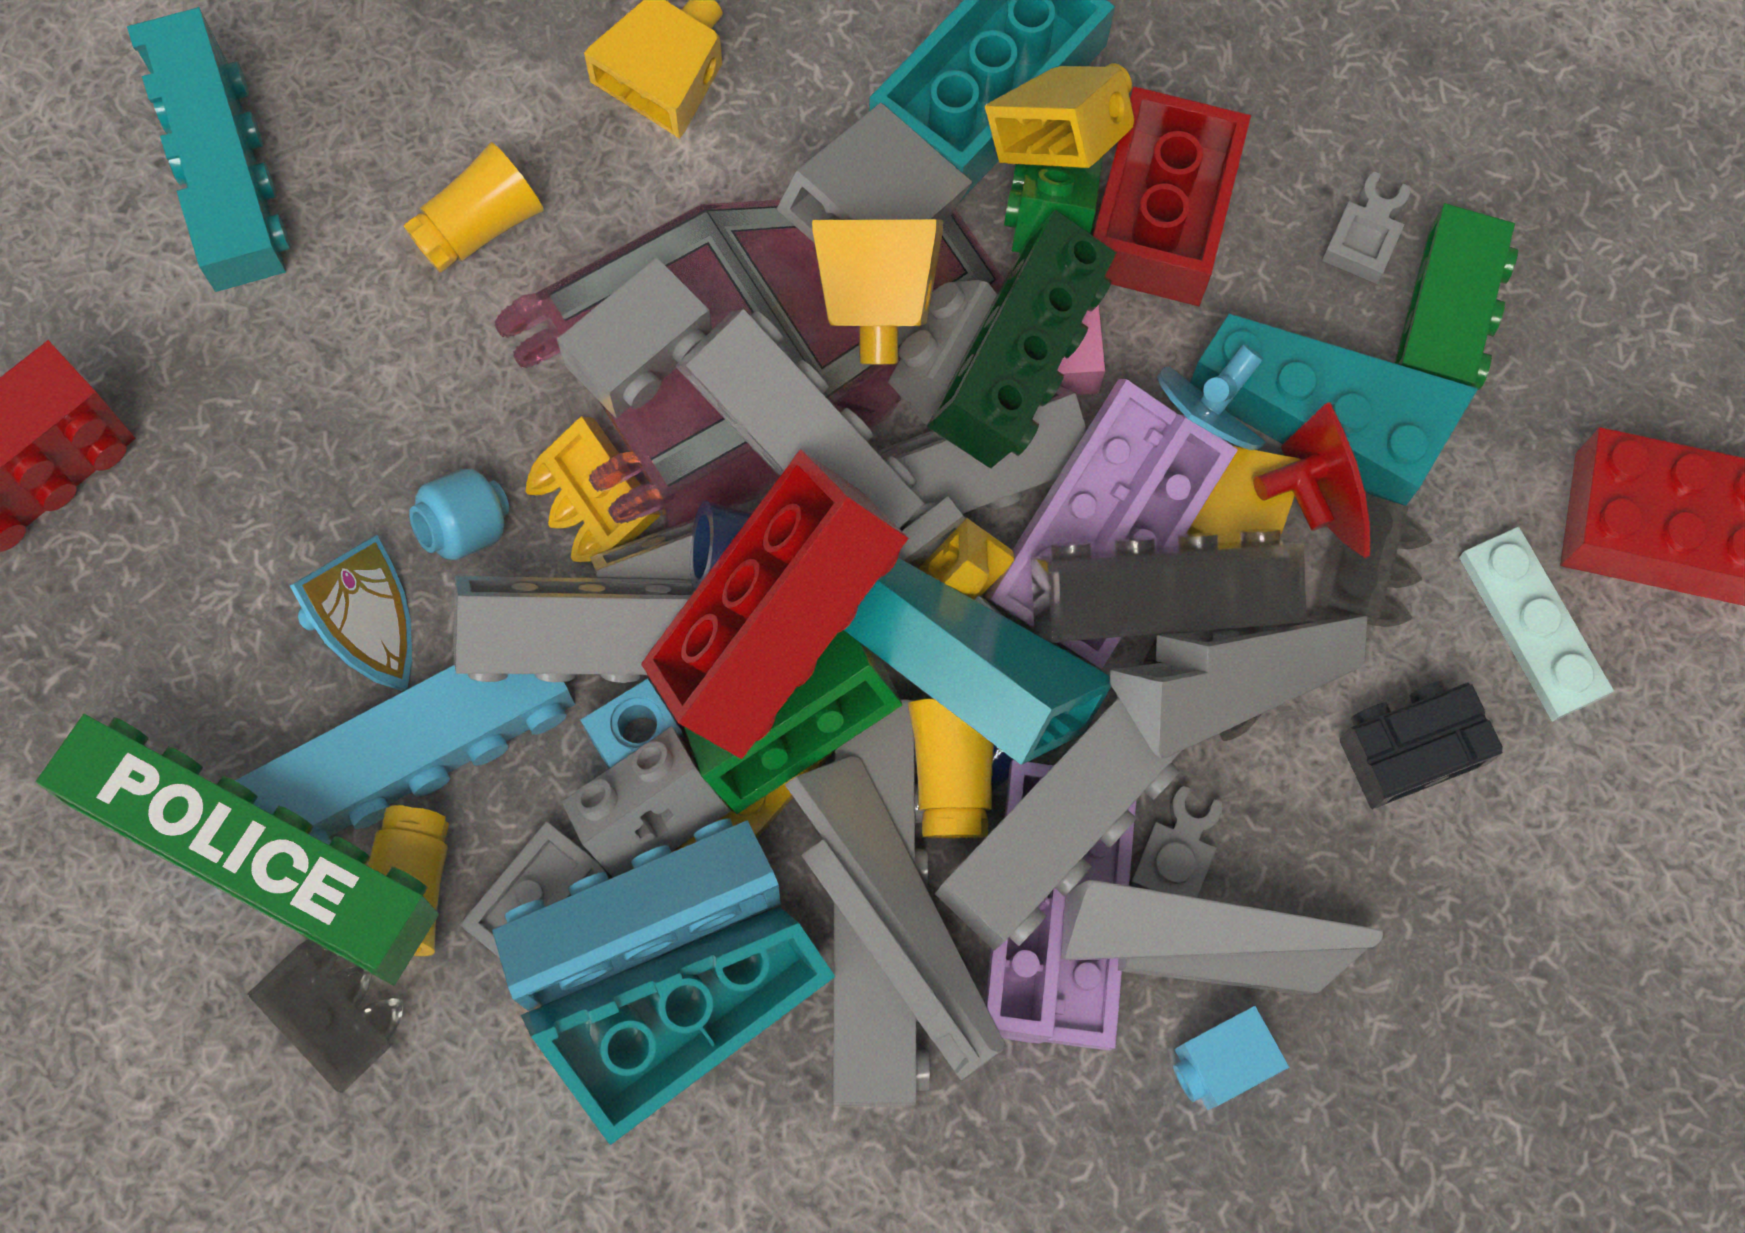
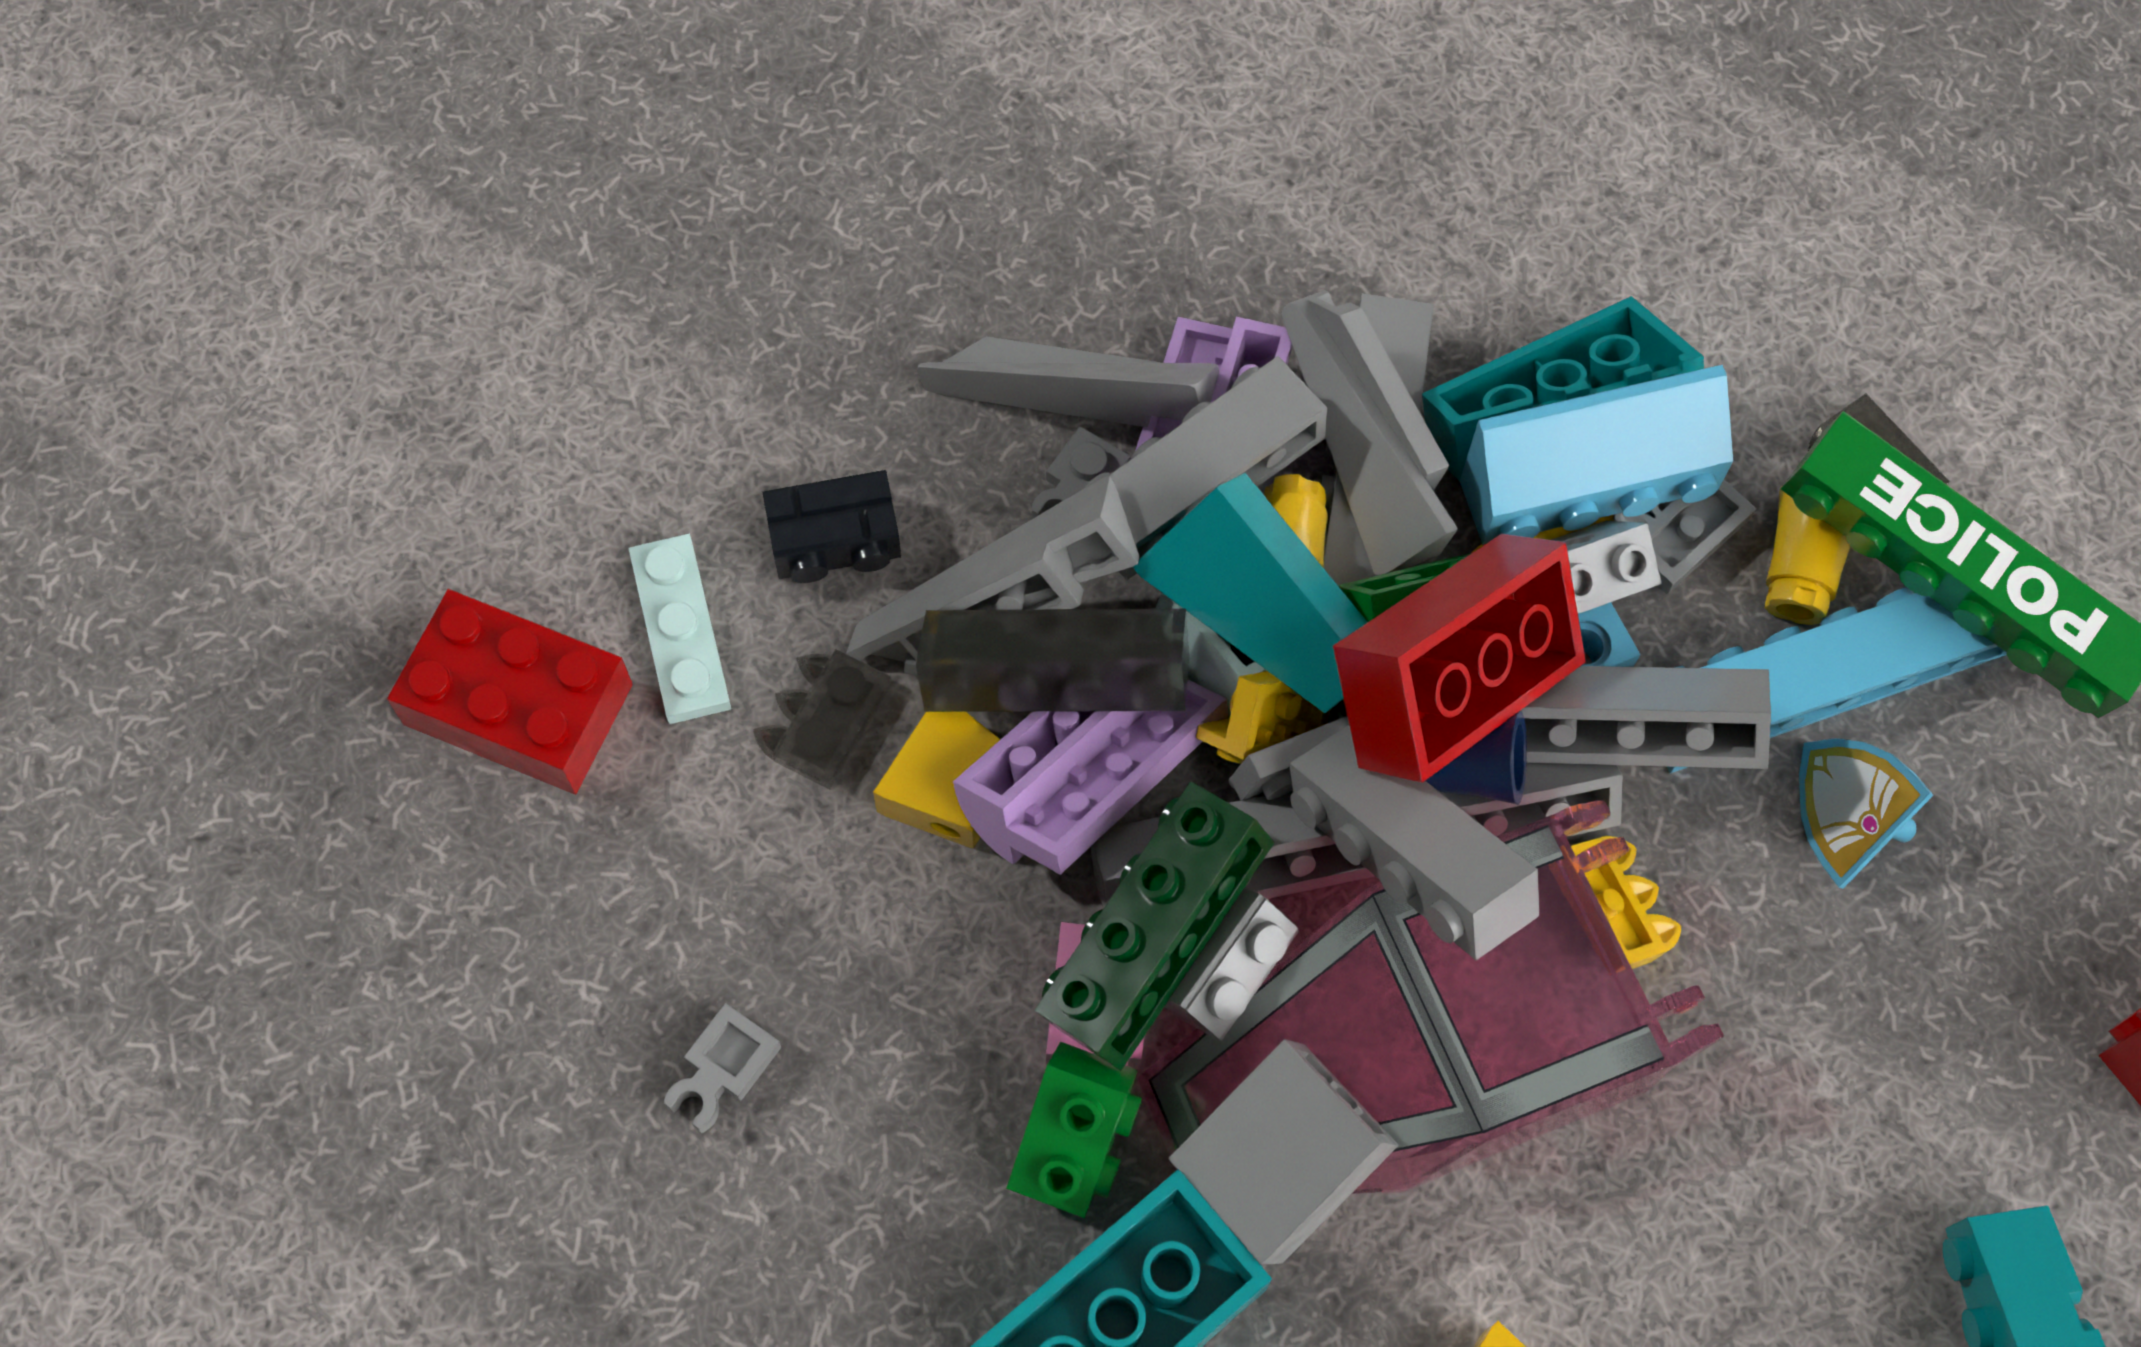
camera: 170 degrees left, 5 degrees down
(459, 514) = (1753, 895): medium azure head -> none
(473, 209) = (1733, 1249): yellow plant -> none
(635, 338) = (1574, 964): light grey brick -> none
(877, 278) = (1309, 1006): yellow torso -> none
(1079, 111) = (1050, 1200): yellow torso -> none
(1170, 194) = (943, 1125): red brick -> none
(1209, 407) = (968, 848): medium azure shield -> none
(1228, 1059) = (1078, 298): medium azure brick -> none
(1323, 480) = (886, 764): red shield -> none
(1388, 411) = (810, 851): teal wedge -> none
(1457, 296) = (657, 957): green brick -> none

